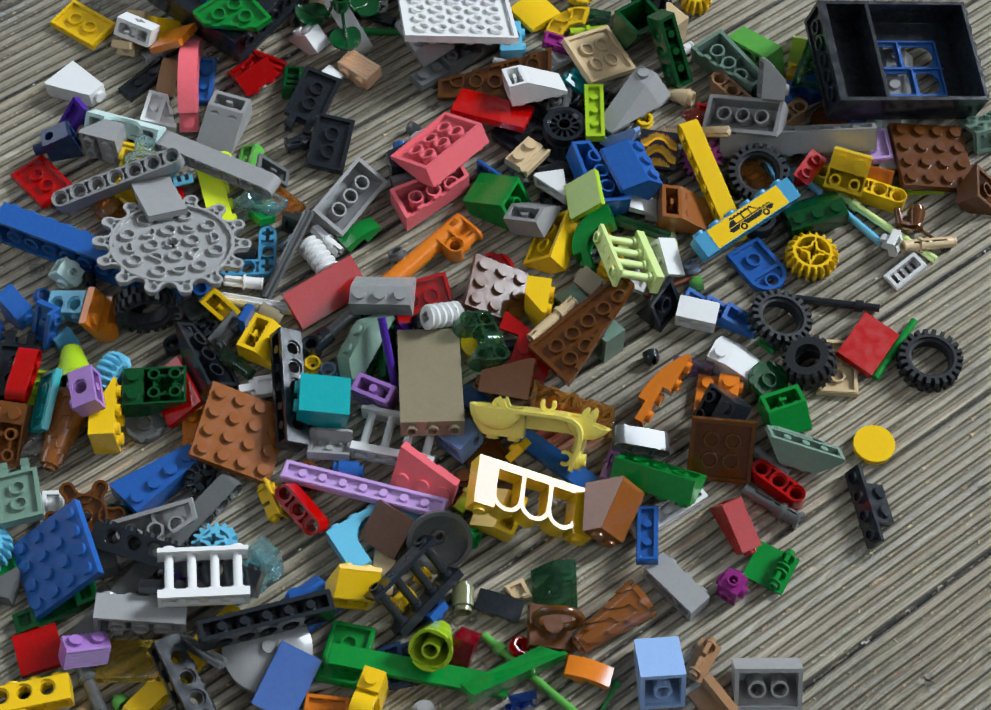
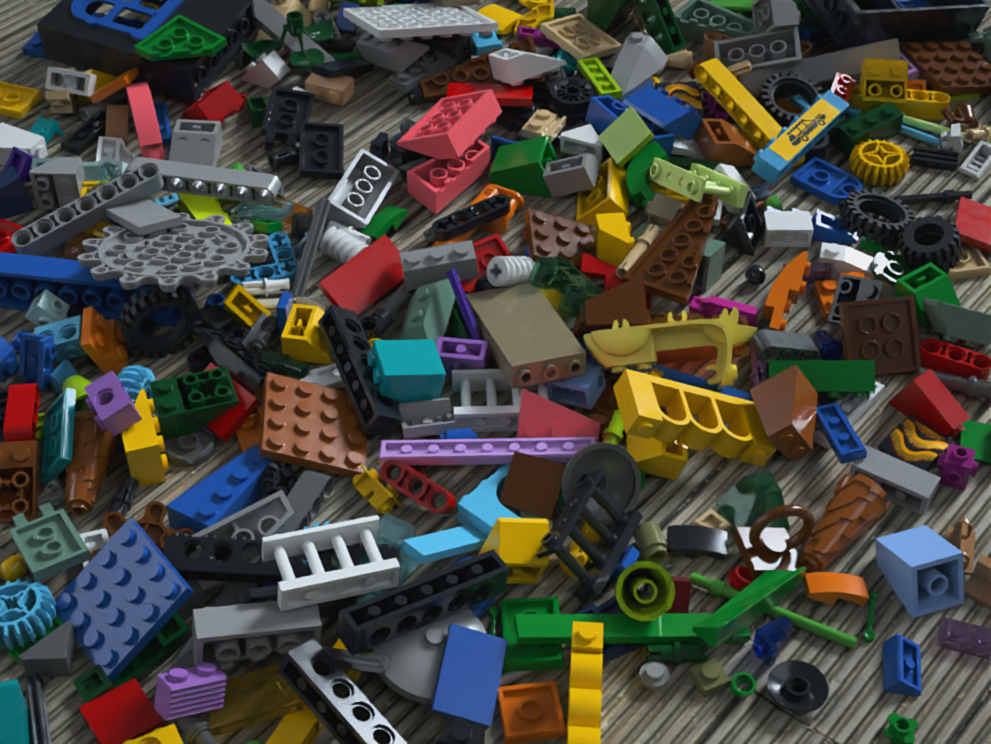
camera: 15 degrees left, 15 degrees down
(88, 456) = (127, 490): none -> black pin
(107, 71) = (46, 128): none -> teal bracket
(302, 567) = (443, 544): none -> medium azure tile
(326, 628) = (494, 613): none -> green hinge
(374, 52) = (342, 67): none -> black tile
(378, 151) = (380, 146): none -> black plate
(429, 253) = (448, 227): none -> black beam
(431, 94) = (415, 97): none -> black hinge
(446, 697) = (677, 653): none -> dark green pin
(607, 389) = (714, 306): none -> dark pink hinge
(680, 444) = (828, 346): none -> clear blue cone
(710, 557) = (915, 443): none -> slope
(868, 256) = (935, 158): none -> black tile

